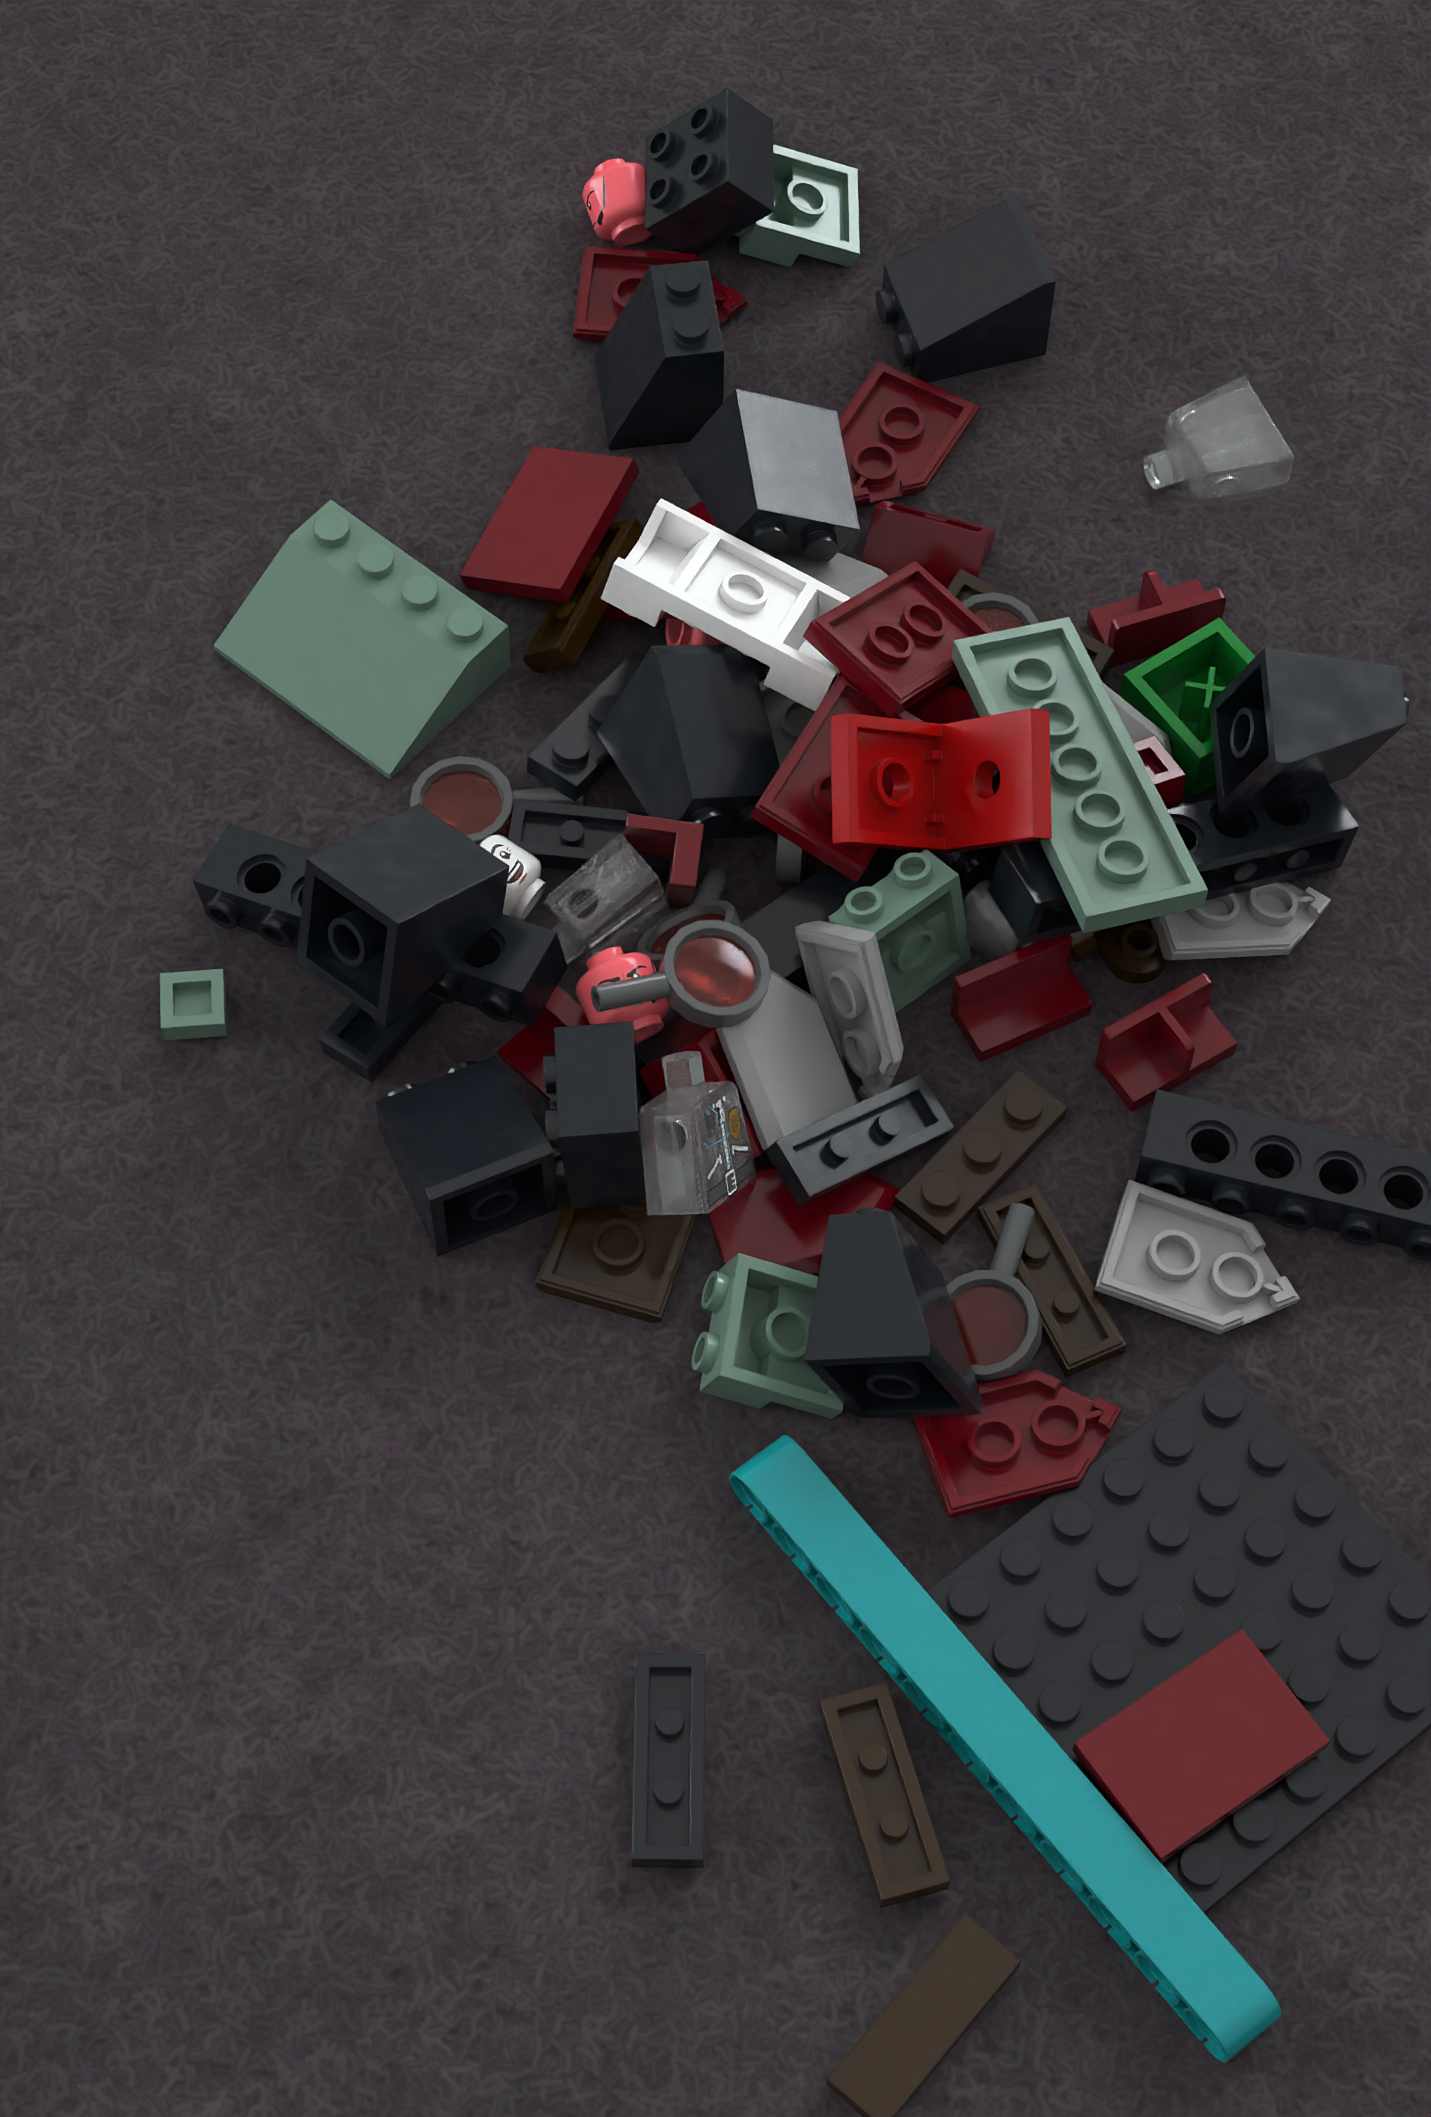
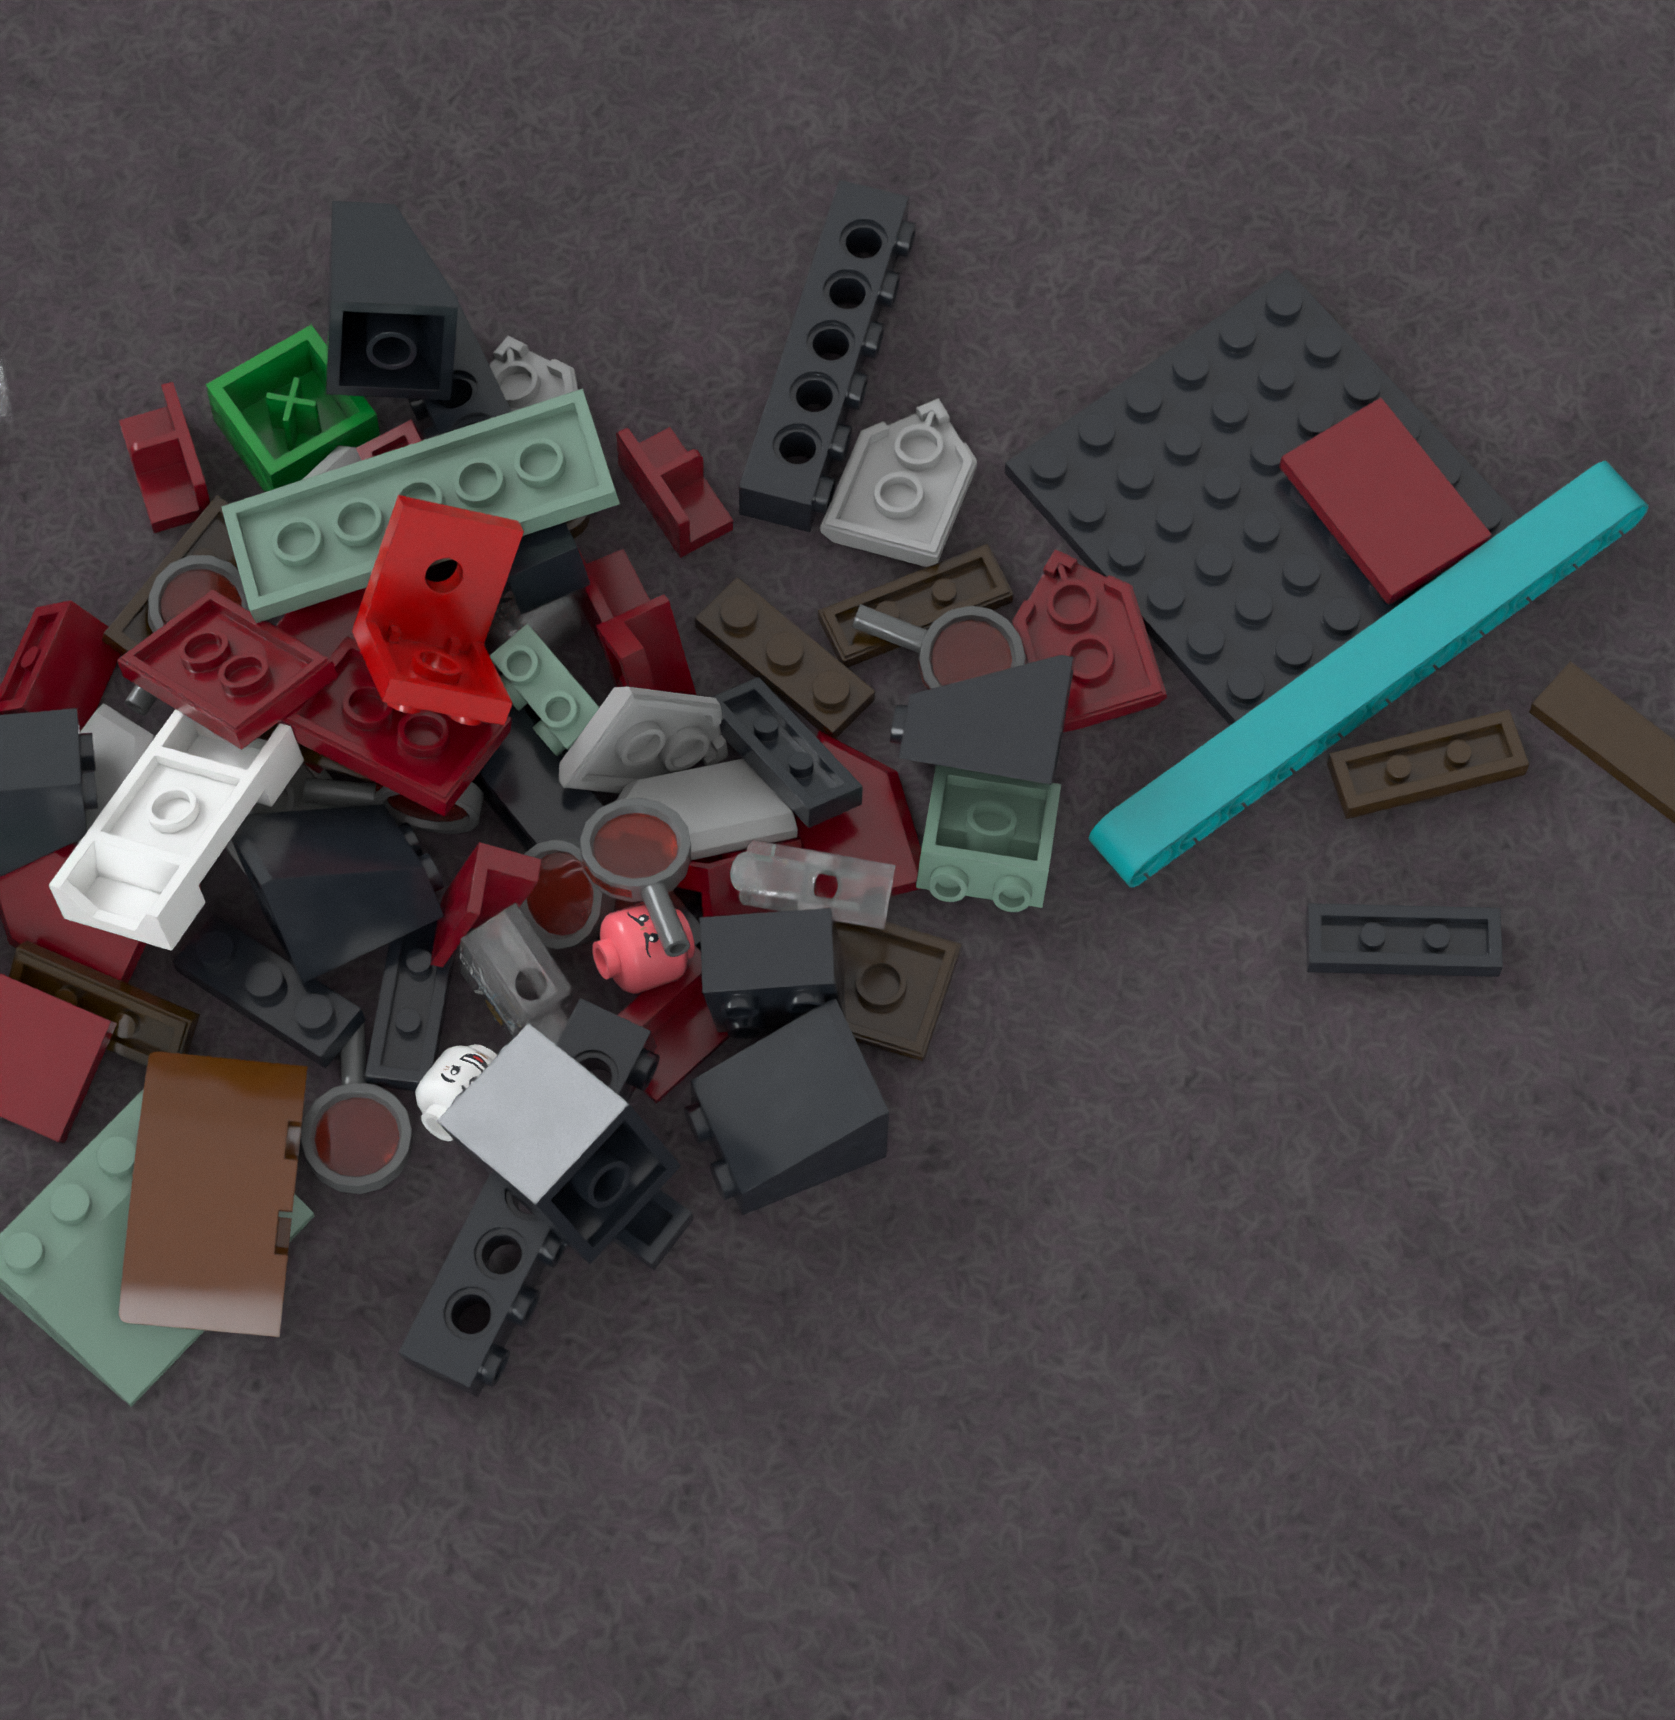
camera: 90 degrees left, 5 degrees up
(193, 1004) = (601, 1396): sand green plate -> none
(392, 665) = (208, 1194): none -> reddish brown panel
(945, 1004) = (646, 649): none -> dark red panel

